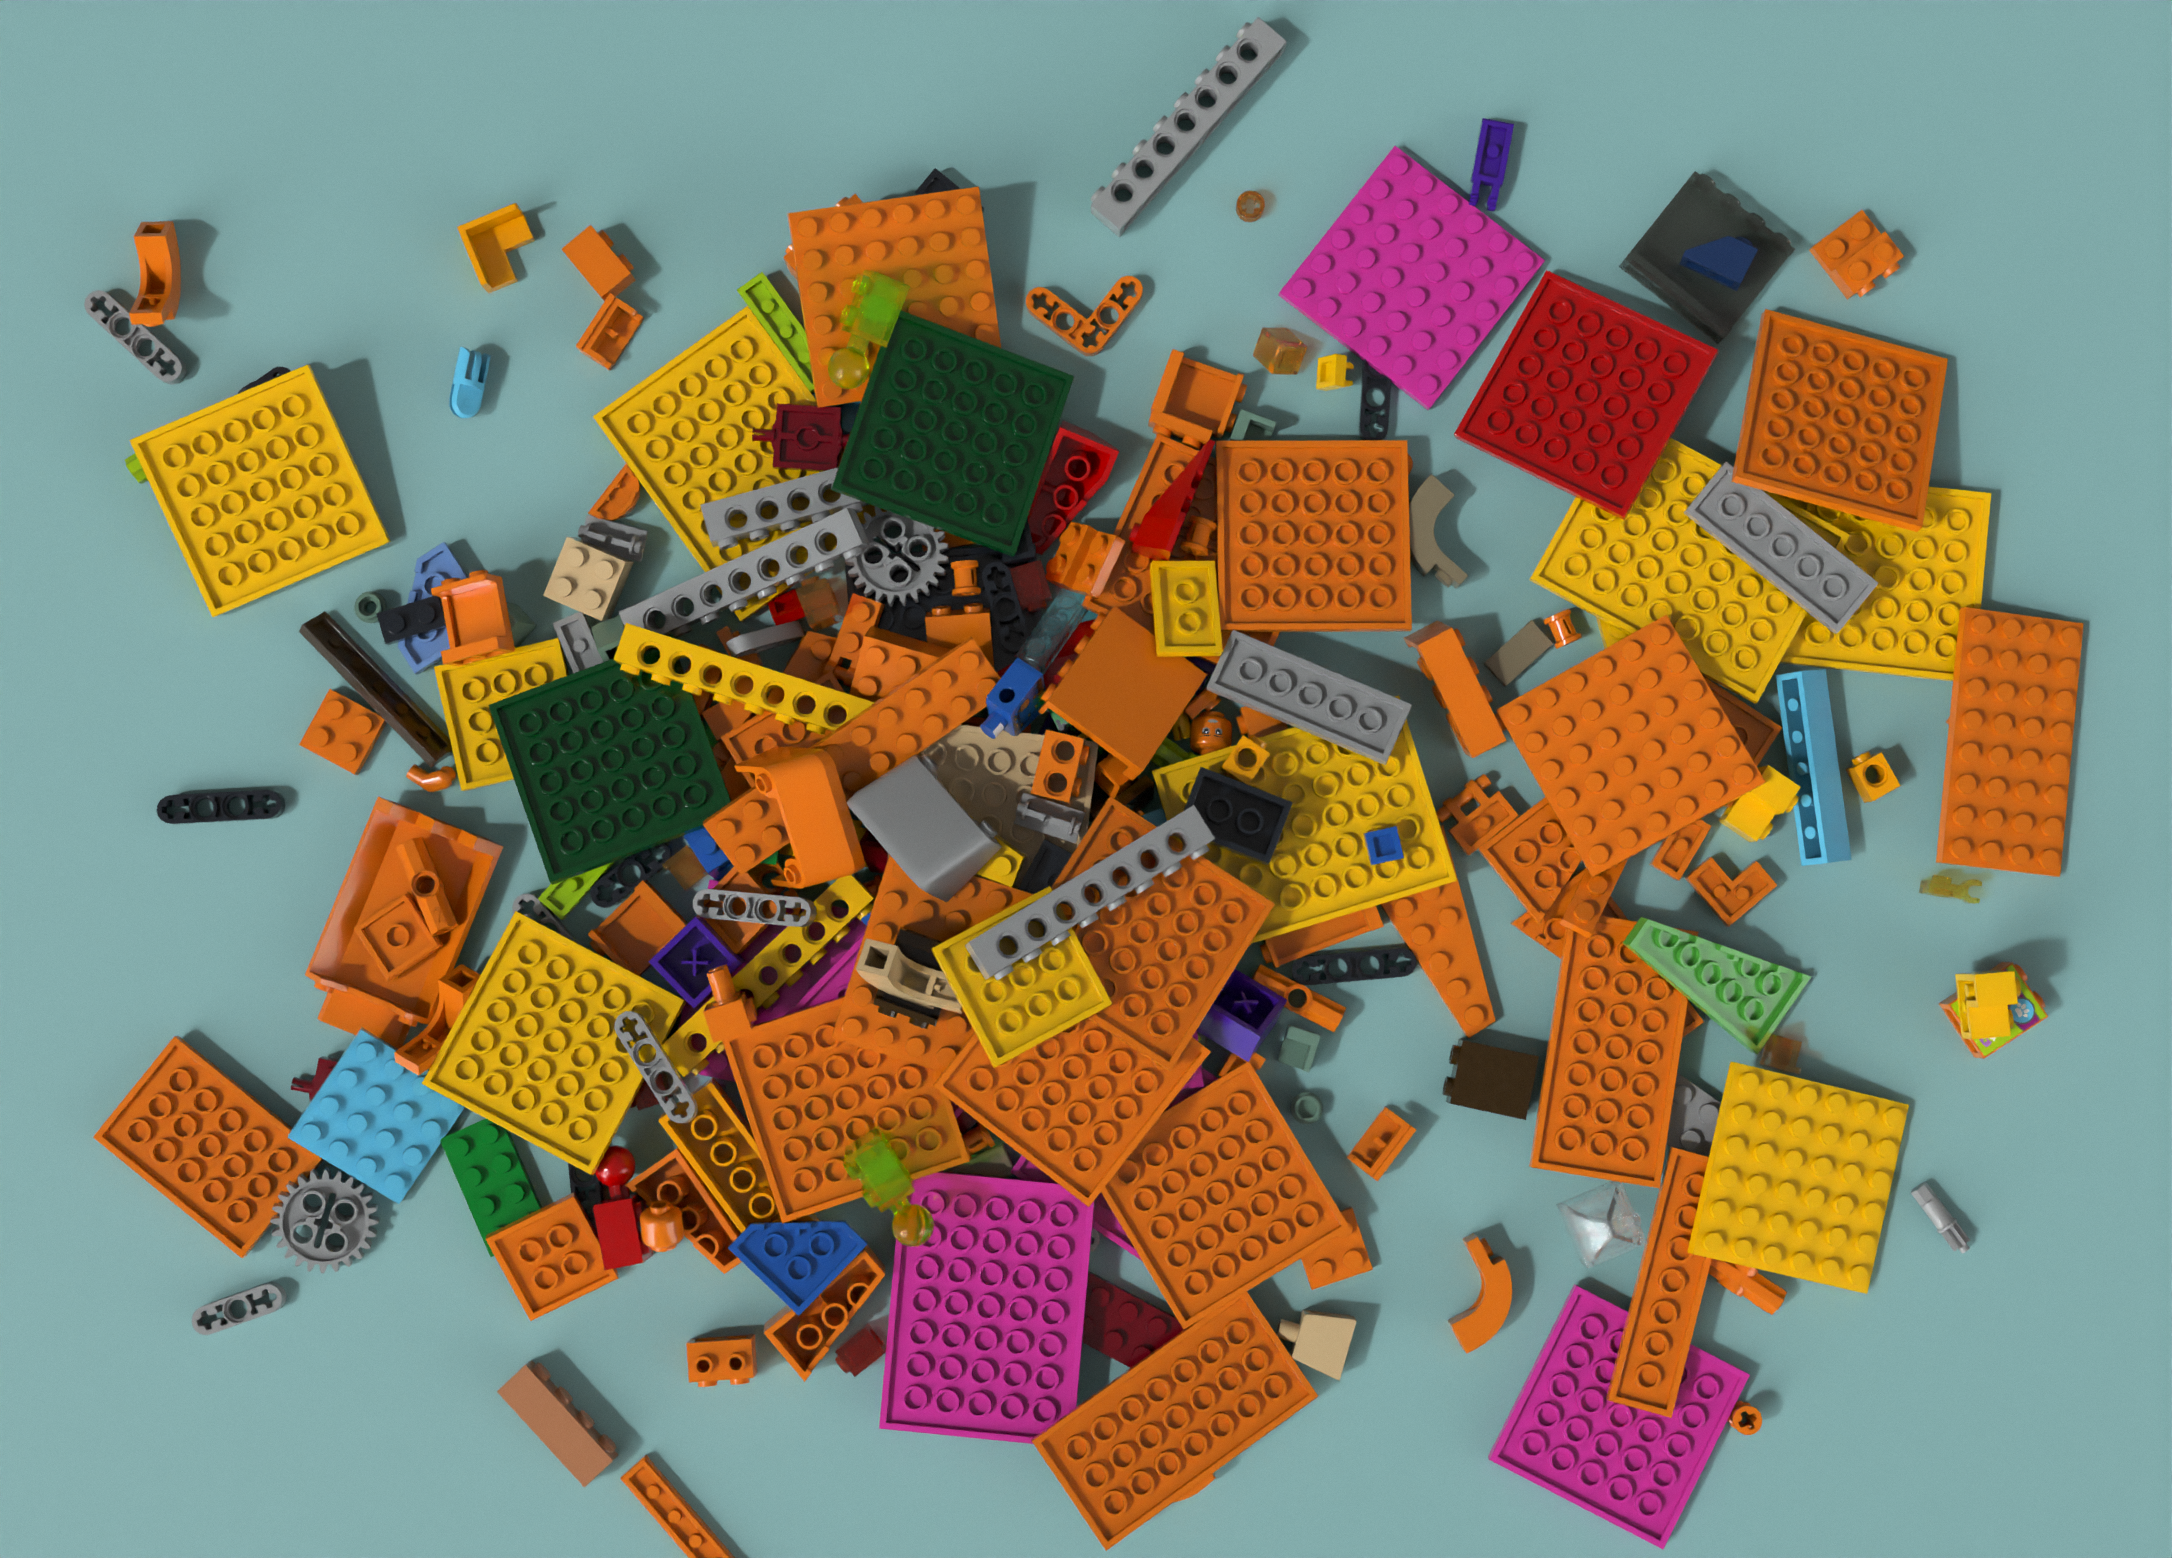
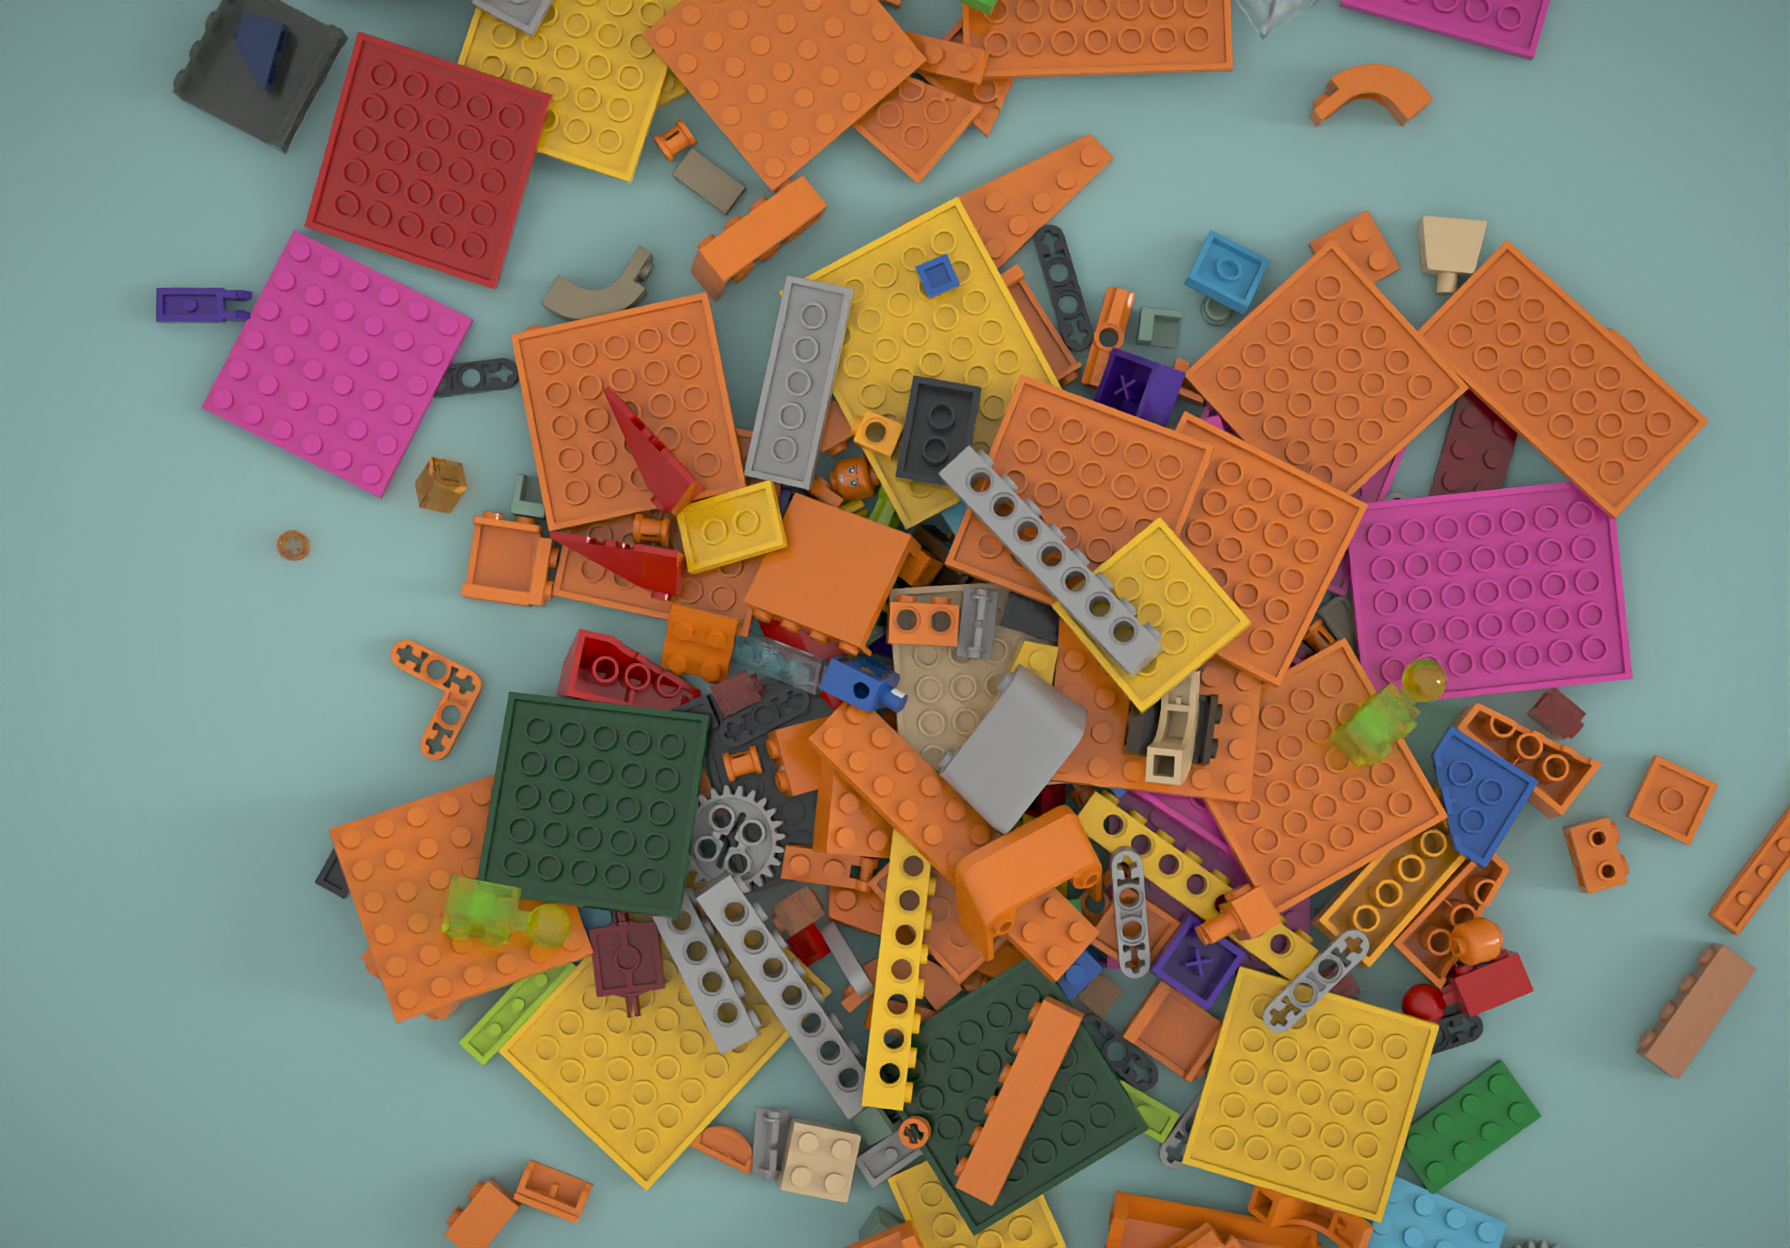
camera: 105 degrees left, 0 degrees up
(551, 1256) = (1528, 1052): orange plate -> none
(589, 660) = (906, 1138): none -> orange bush
(601, 769) = (1019, 1100): none -> orange brick
(758, 1442) = (1671, 800): none -> orange plate
(1253, 552) = (662, 472): none -> red wedge
(1255, 37) = (121, 560): light grey brick -> none
(1332, 372) = (453, 426): yellow tile -> none
(1338, 1123) = (1227, 272): none -> dark azure plate
(1381, 1143) = (1239, 223): orange hinge -> none
(1483, 822) = (889, 184): orange plate -> none
(1490, 1079) = (1151, 127): dark brown panel -> none

